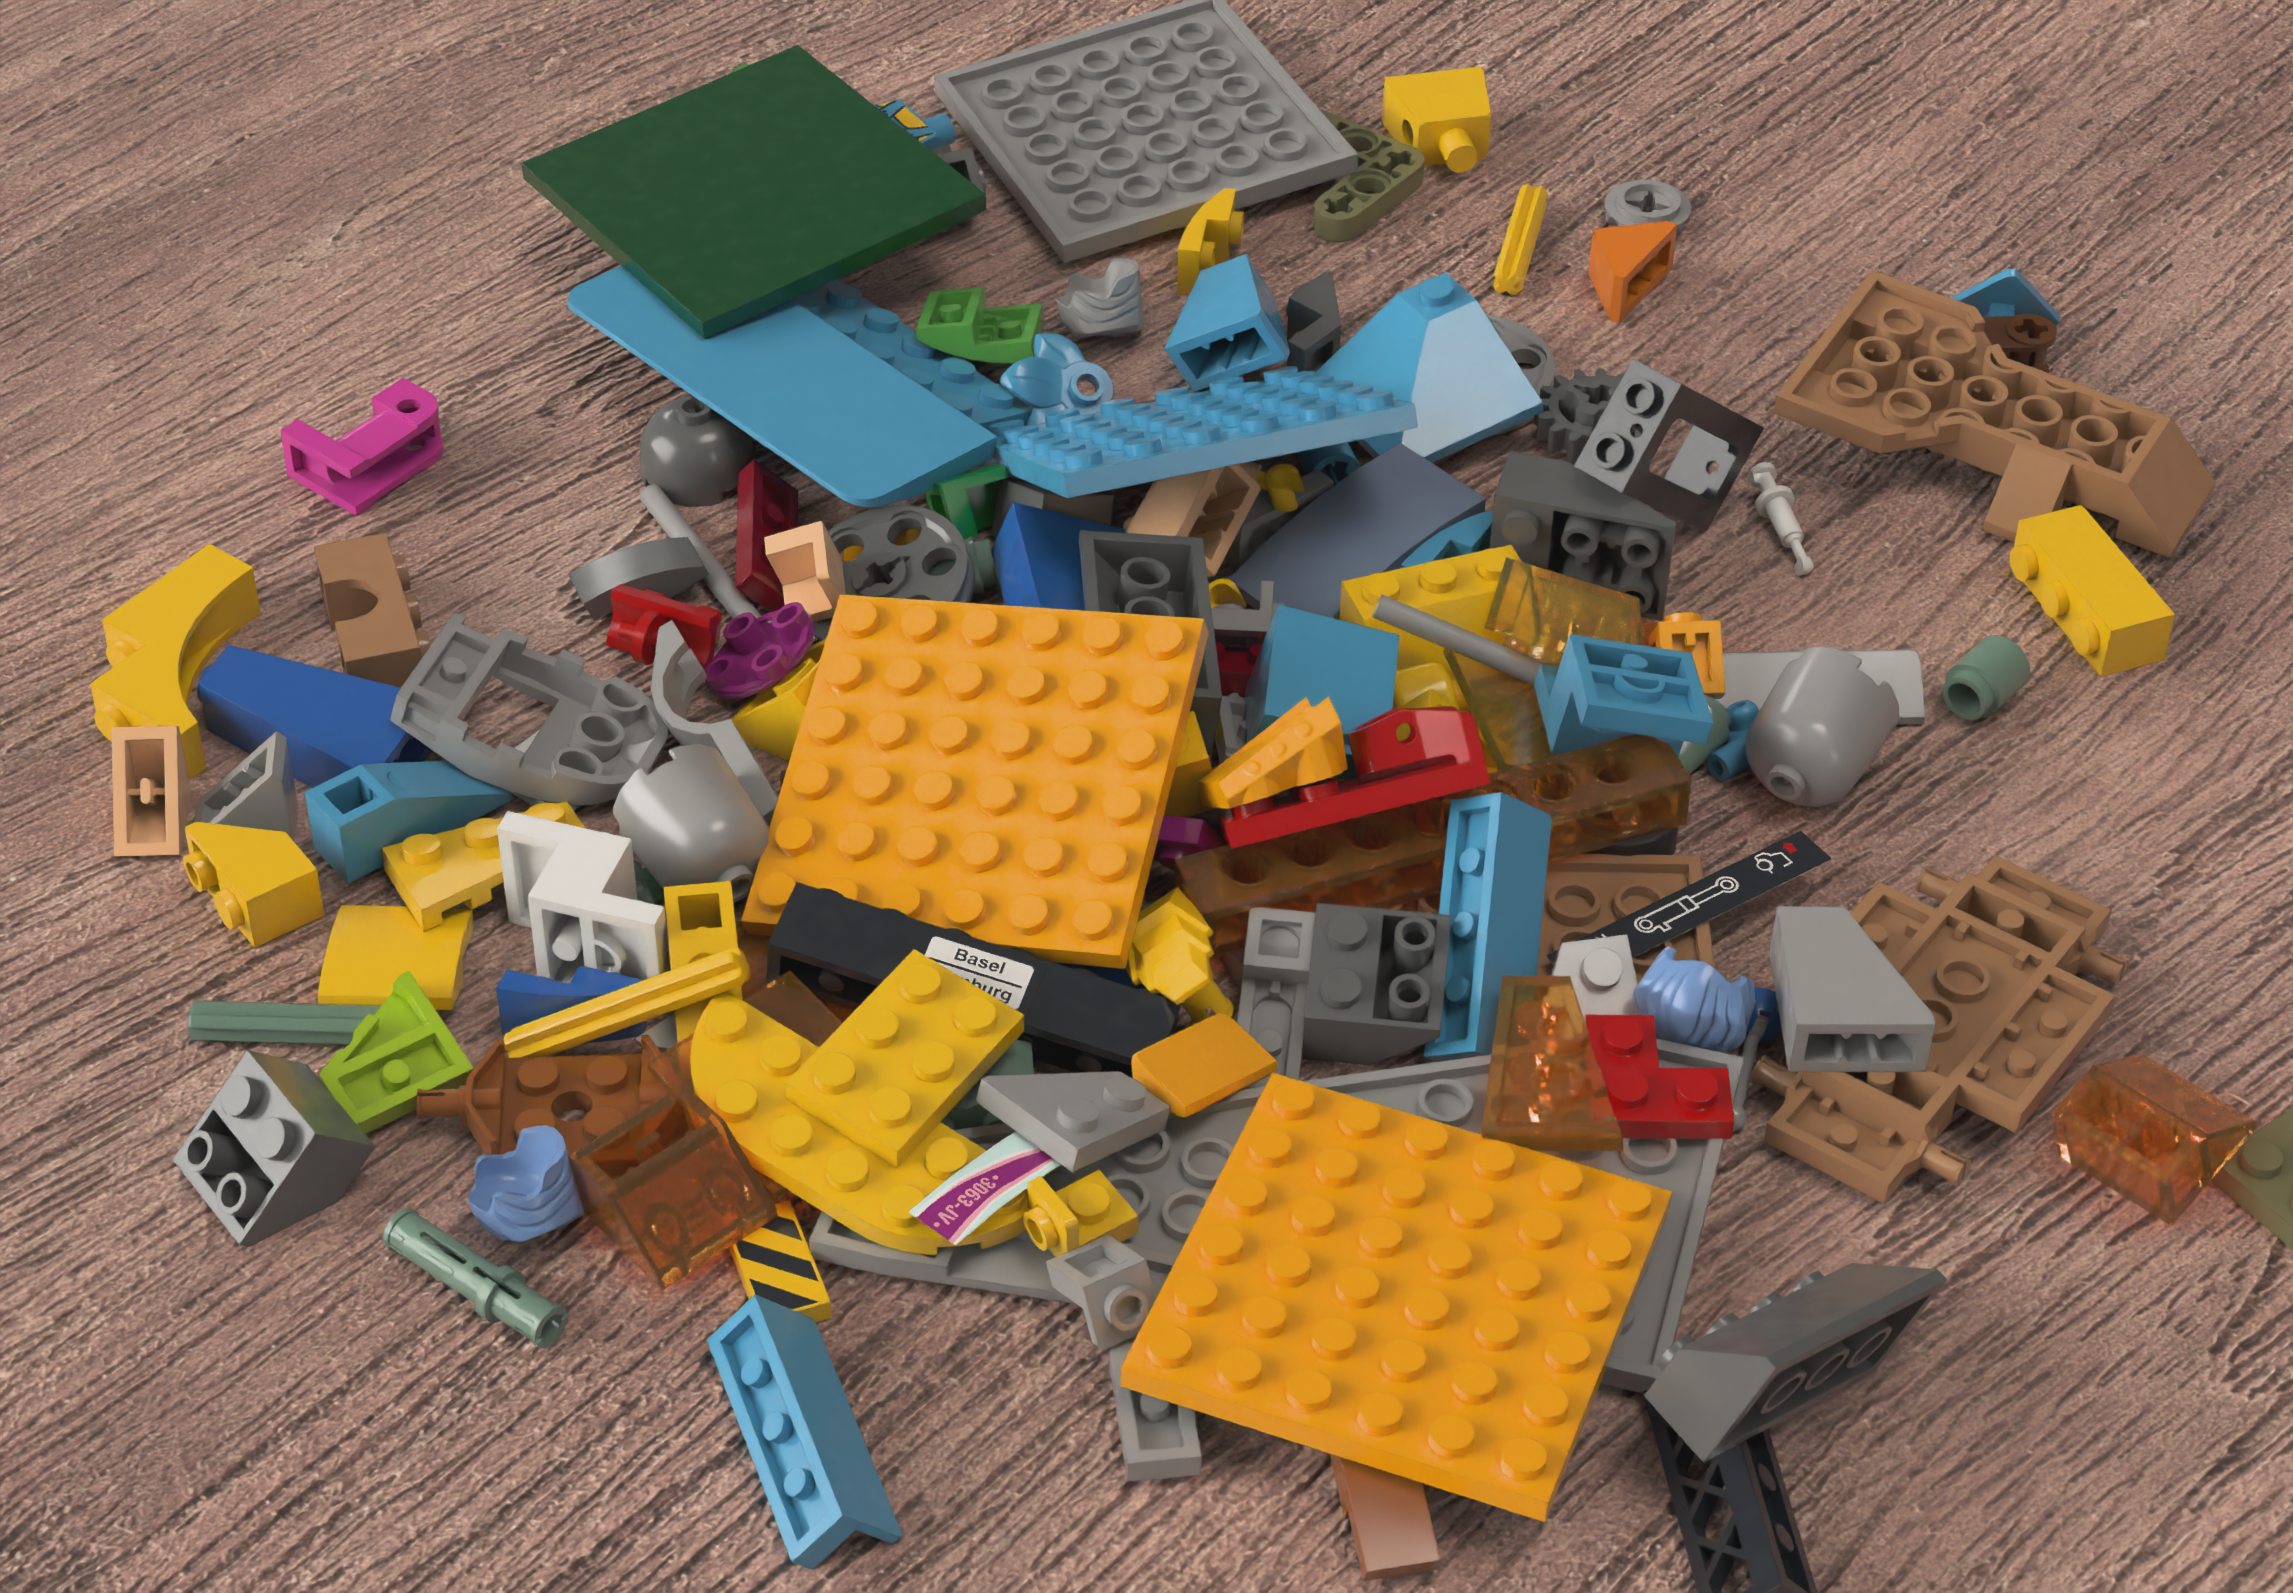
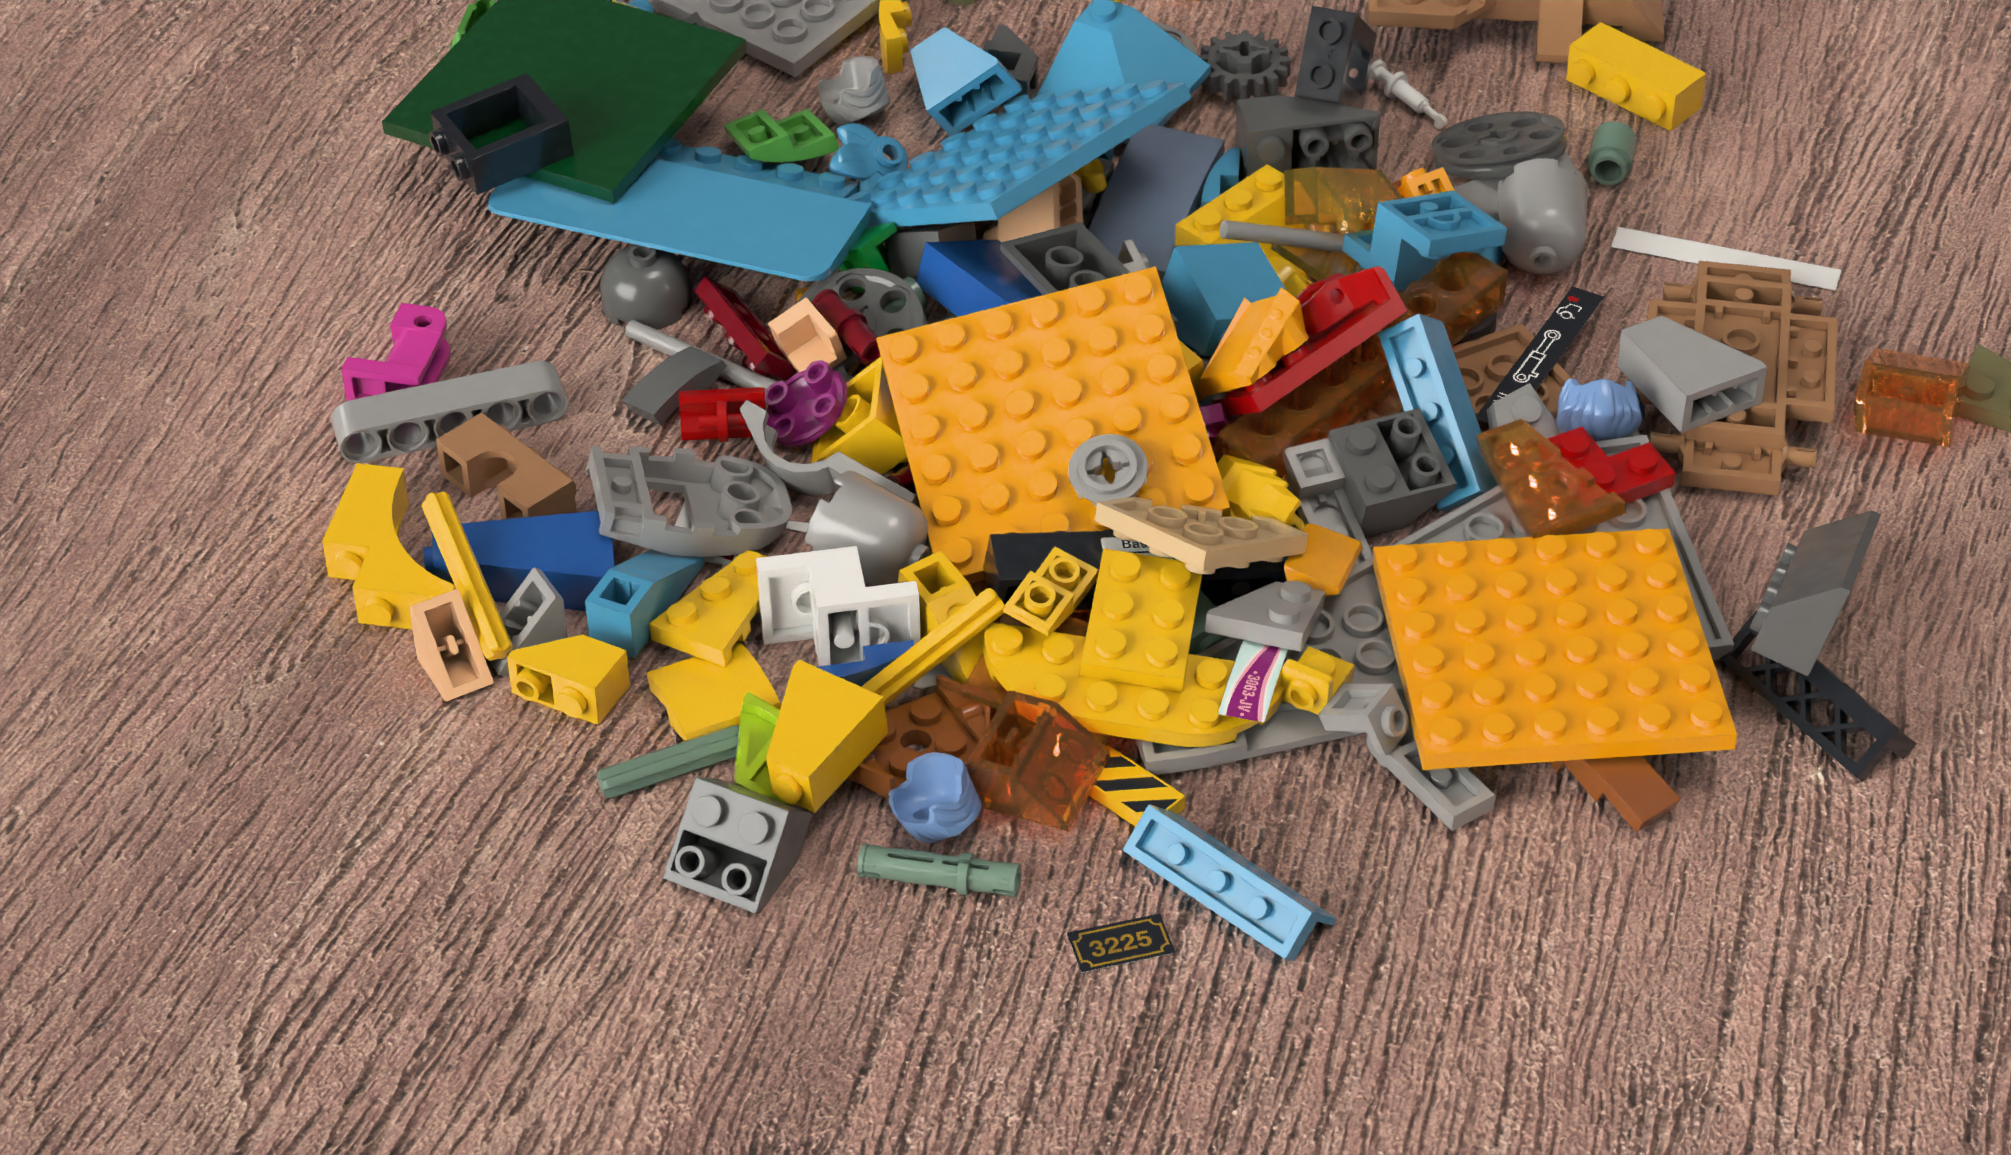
camera: 25 degrees left, 0 degrees up
(213, 715) = (467, 576): none -> yellow axle
(423, 523) = (419, 415): none -> light grey beam
(431, 1057) = (821, 735): none -> yellow slope
(619, 243) = (509, 158): none -> black window
(624, 1457) = (1120, 943): none -> black sticker
(810, 986) = (1052, 592): none -> yellow slope
(860, 568) = (849, 325): none -> dark red pin
(977, 836) = (1122, 454): none -> light grey gear
(1044, 981) = (1200, 534): none -> tan plate
(1840, 612) = (1497, 142): none -> dark grey wedge
(2045, 860) = (1694, 251): none -> white sticker

